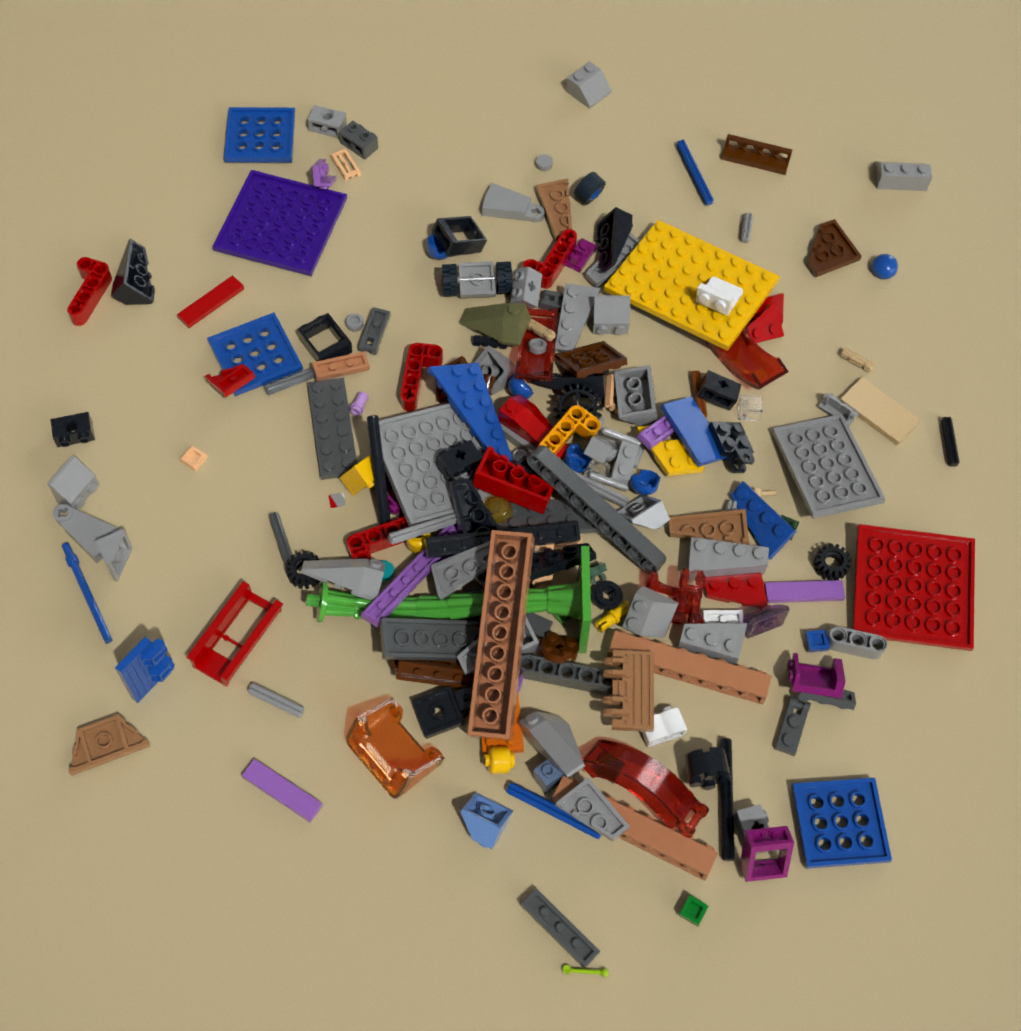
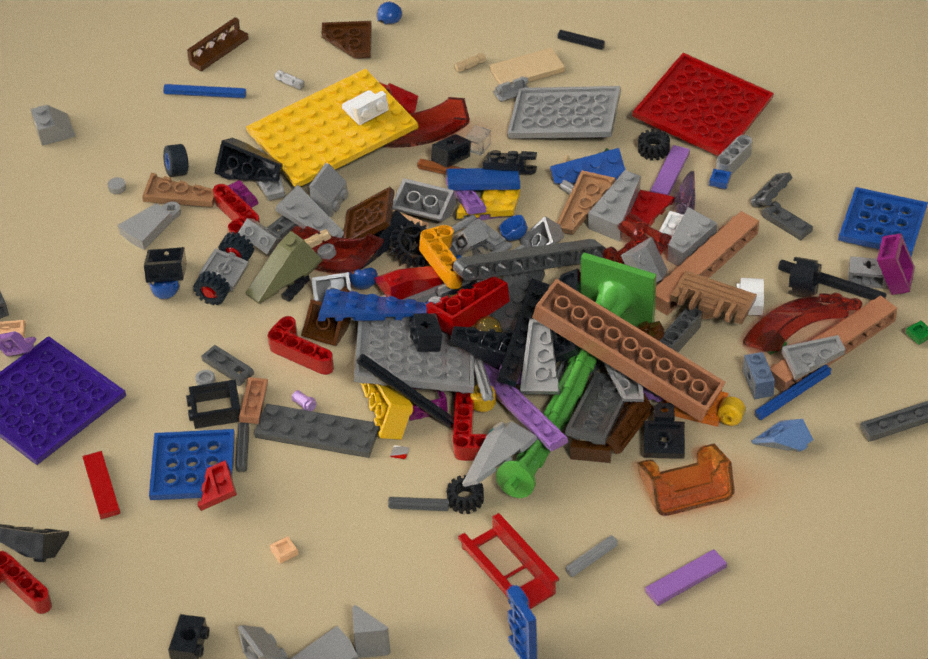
camera: 60 degrees left, 15 degrees down
(553, 740) = (741, 360): light grey wedge -> none
(816, 679) = (759, 184): magenta panel -> none

